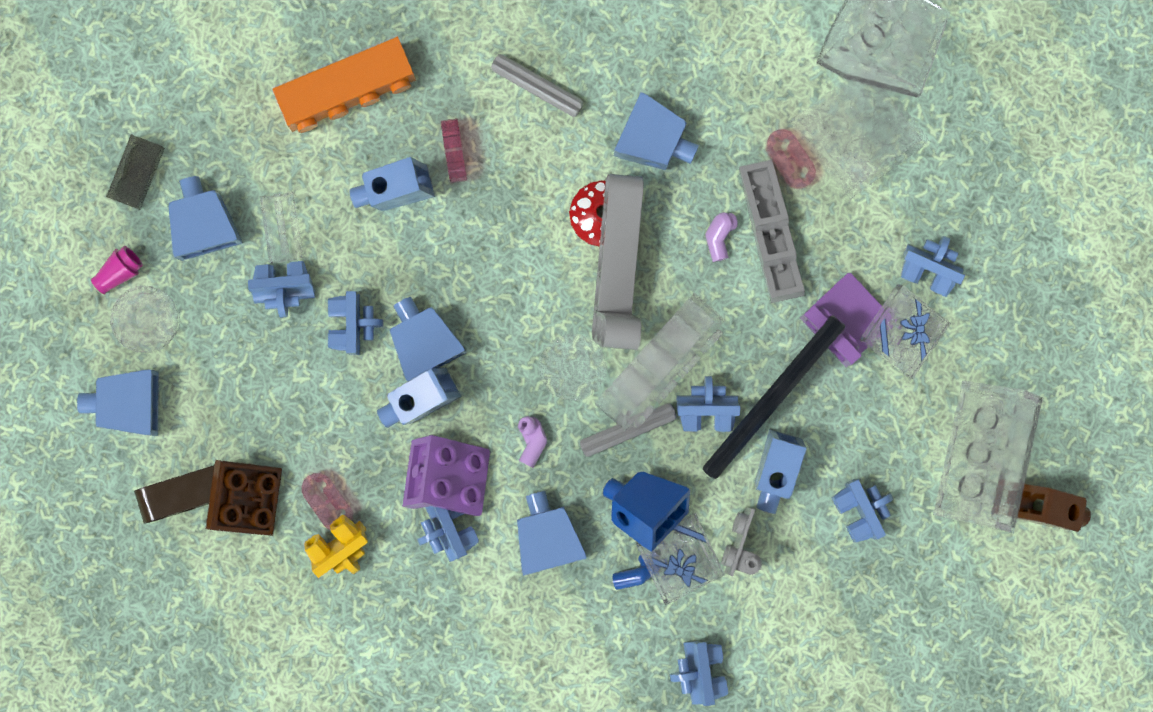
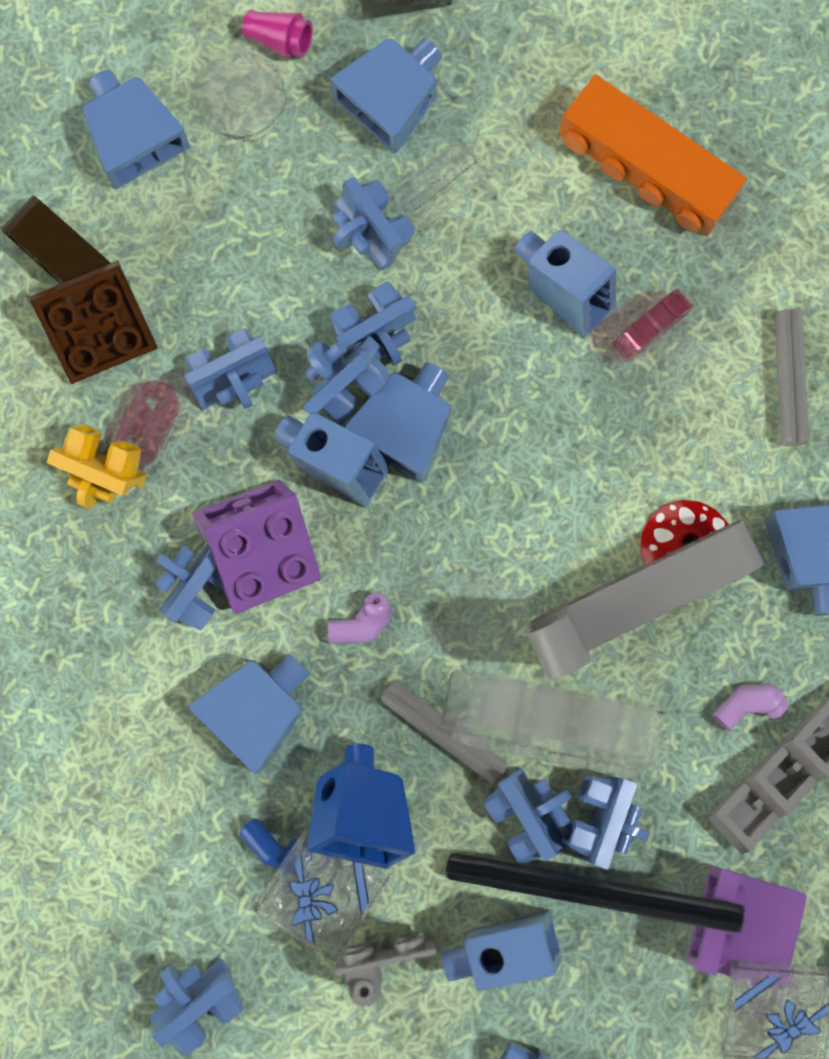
camera: 60 degrees right, 5 degrees down
(329, 430) = (230, 374): none -> medium blue hips
(368, 366) = (359, 367): none -> medium blue hips
(740, 360) = (612, 822): none -> medium blue hips

